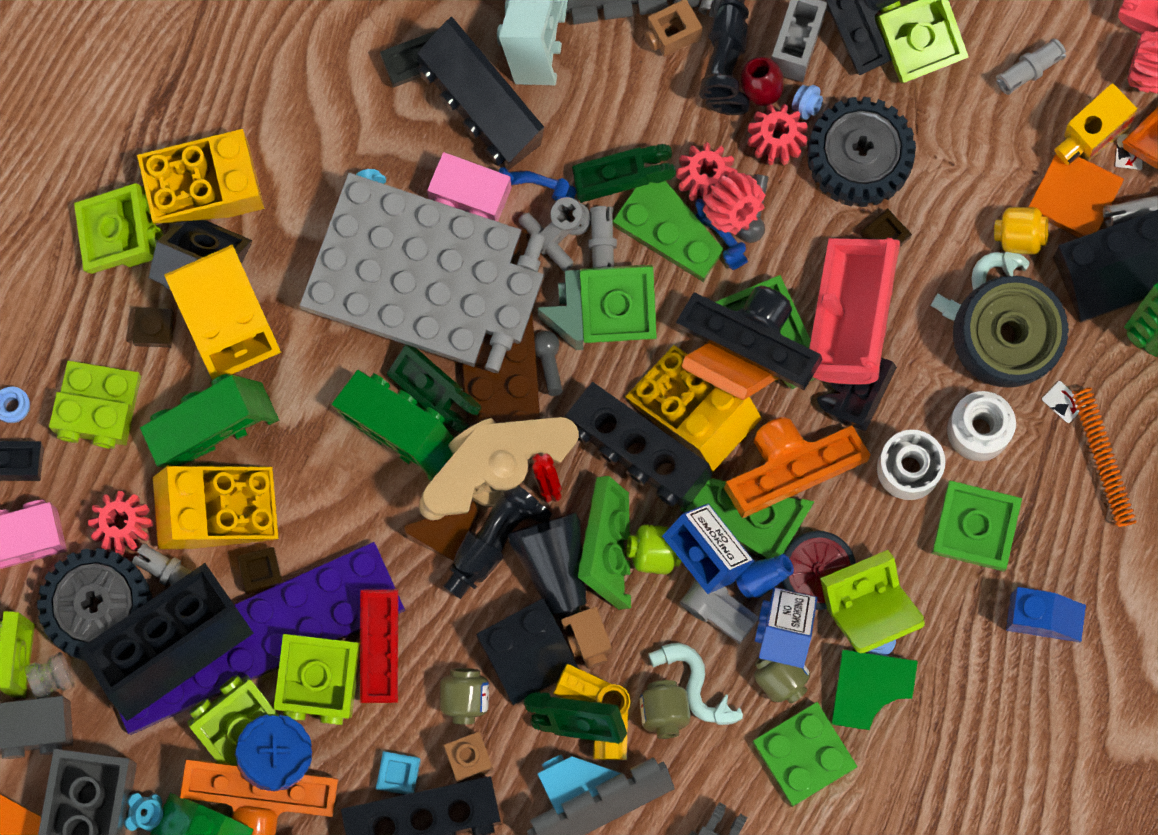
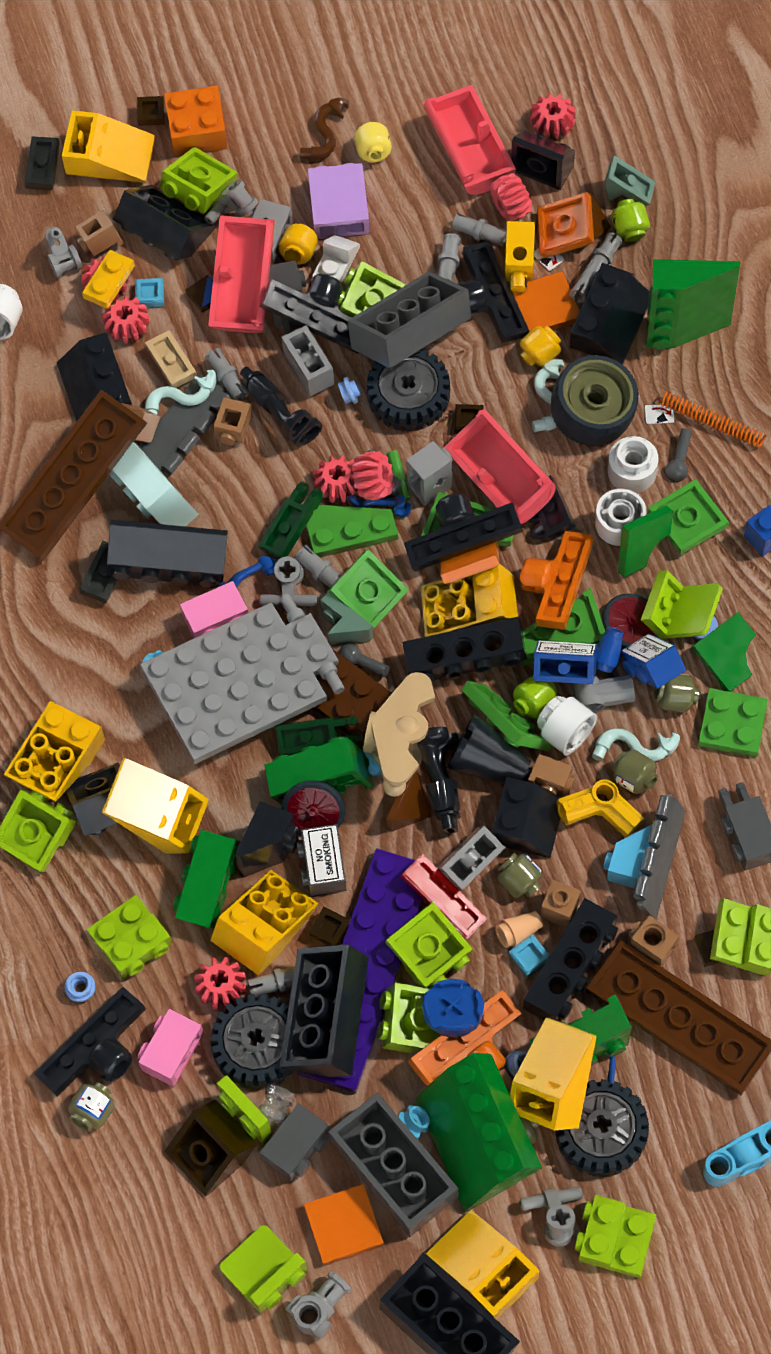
camera: 45 degrees left, 10 degrees down
(153, 327) = (115, 864): dark brown plate -> none
(285, 438) = (266, 840): none -> black slope
(318, 504) = (323, 860): none -> brick
(356, 452) = (314, 805): none -> dark red wheel
(412, 740) = (518, 928): none -> light nougat cone
(436, 636) = (471, 857): none -> light grey brick
(546, 478) = (434, 713): red axle -> none
(576, 718) = (595, 821): dark green hinge -> none
(651, 602) = (566, 723): none -> white piece
(762, 81) = (315, 399): dark red animal -> none
(765, 127) = (363, 424): coral gear -> none
(768, 221) = (397, 469): none -> bright green pin
(788, 250) = (429, 472): none -> light grey brick
(905, 503) = (640, 539): none -> green tile
(924, 88) = (409, 319): none -> dark grey brick
(1020, 470) = (677, 469): none -> dark grey bar
(1033, 134) = (491, 292): none -> black plate
(1091, 62) = (479, 229): none -> light grey pin

